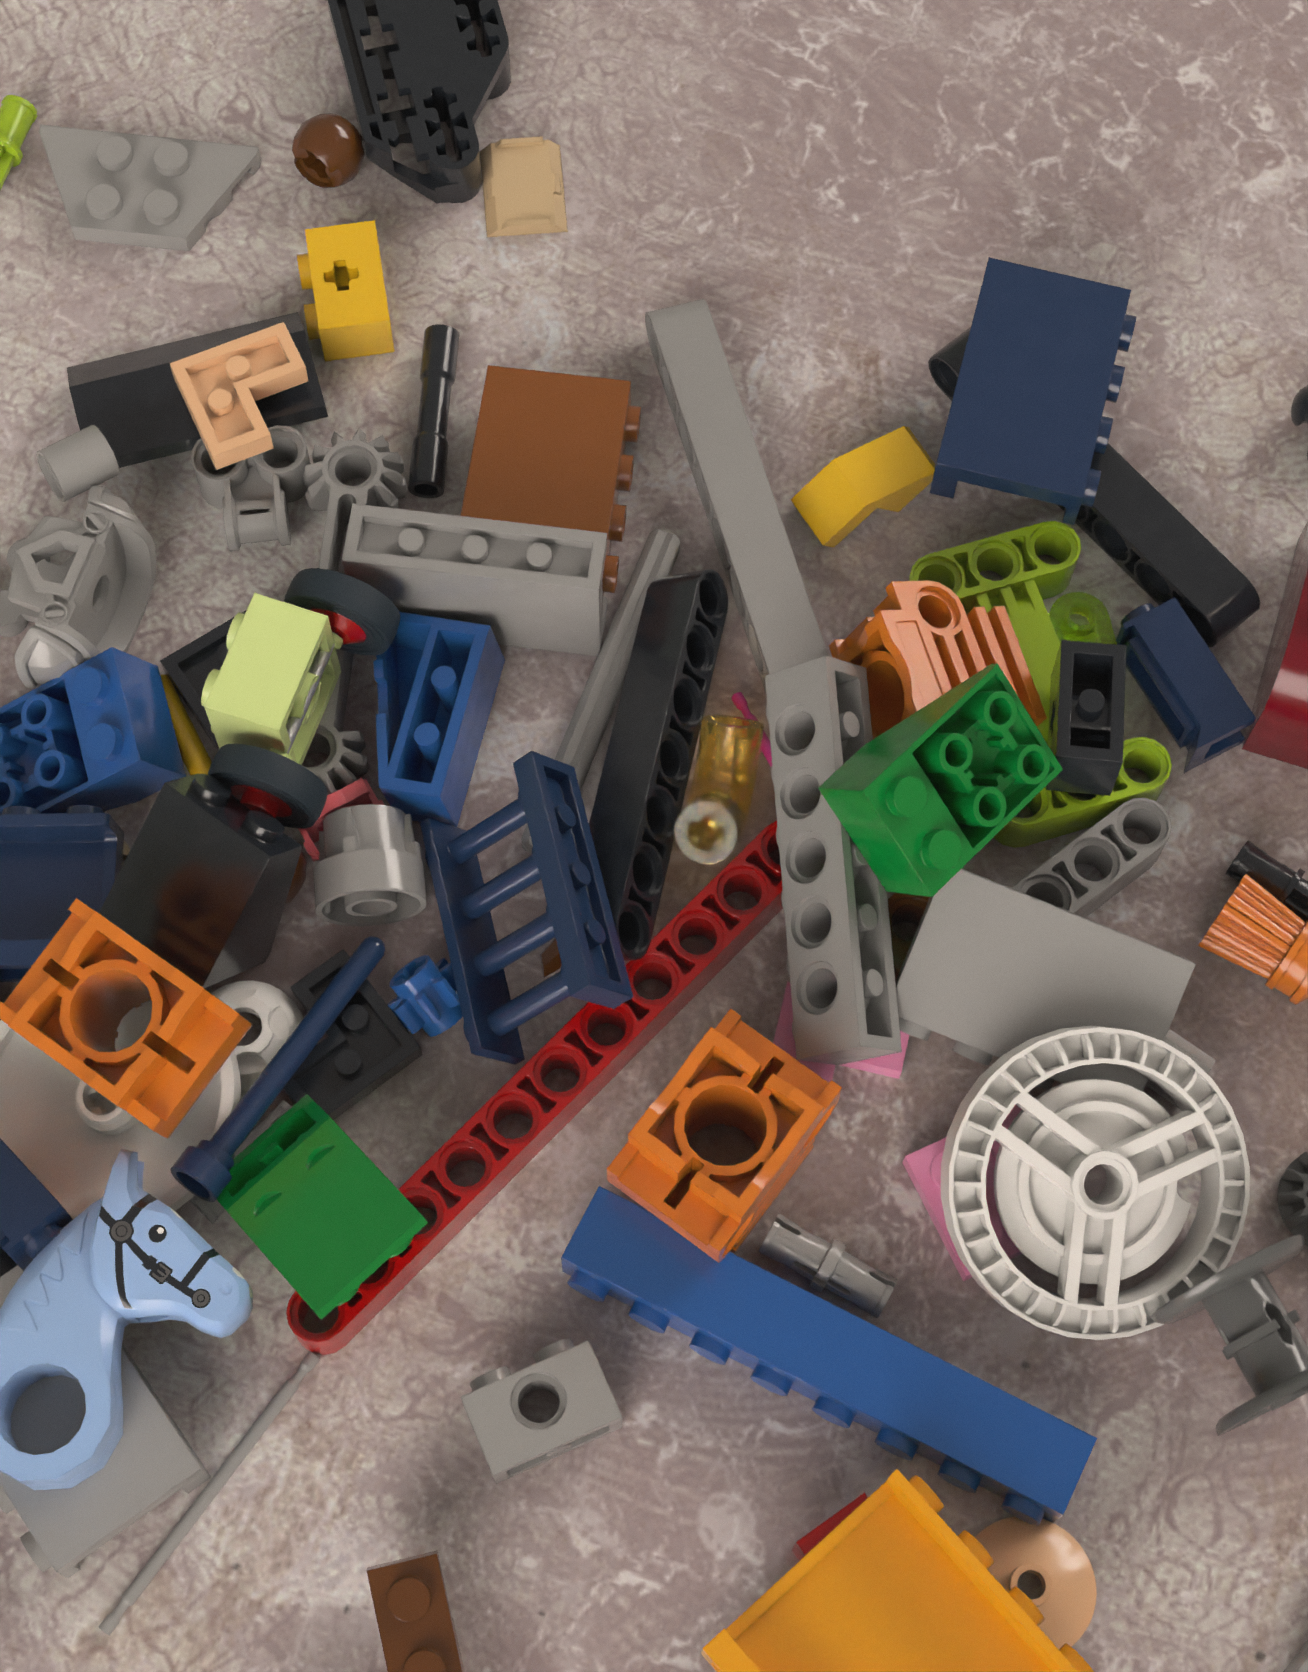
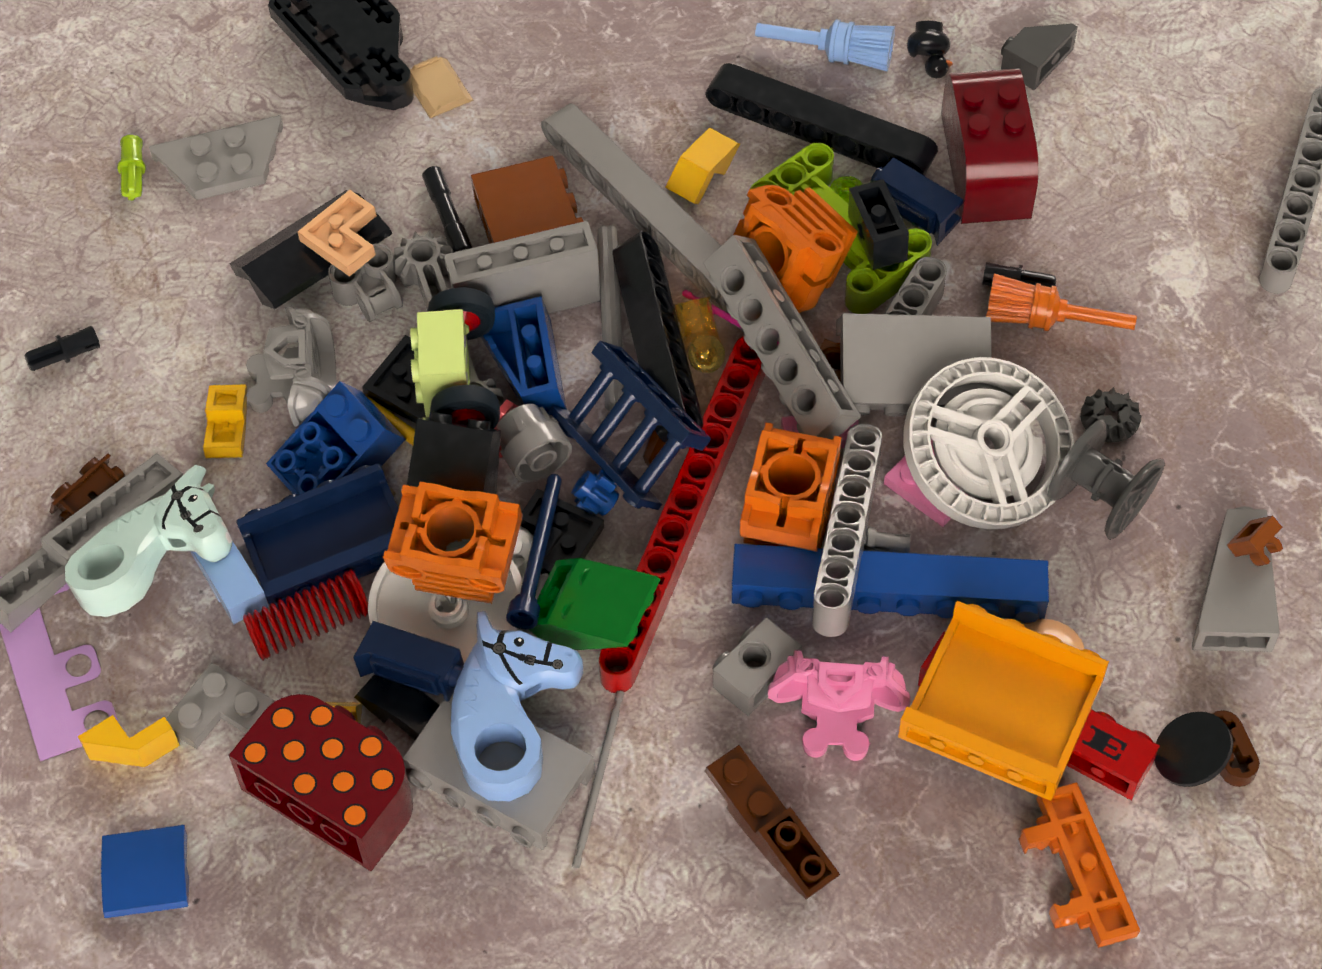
camera: 20 degrees left, 10 degrees down
(77, 463) = (269, 301): light grey pin -> none
(328, 150) = (322, 102): reddish brown piece -> none
(347, 289) = (370, 167): yellow brick -> none
(641, 1532) = (838, 699): none -> bright pink piece
(774, 1266) = (847, 531): none -> light grey beam
(941, 783) = (822, 273): green slope -> none
(1036, 387) = (771, 79): dark blue panel -> none
(1210, 367) = (842, 41): none -> light blue piece

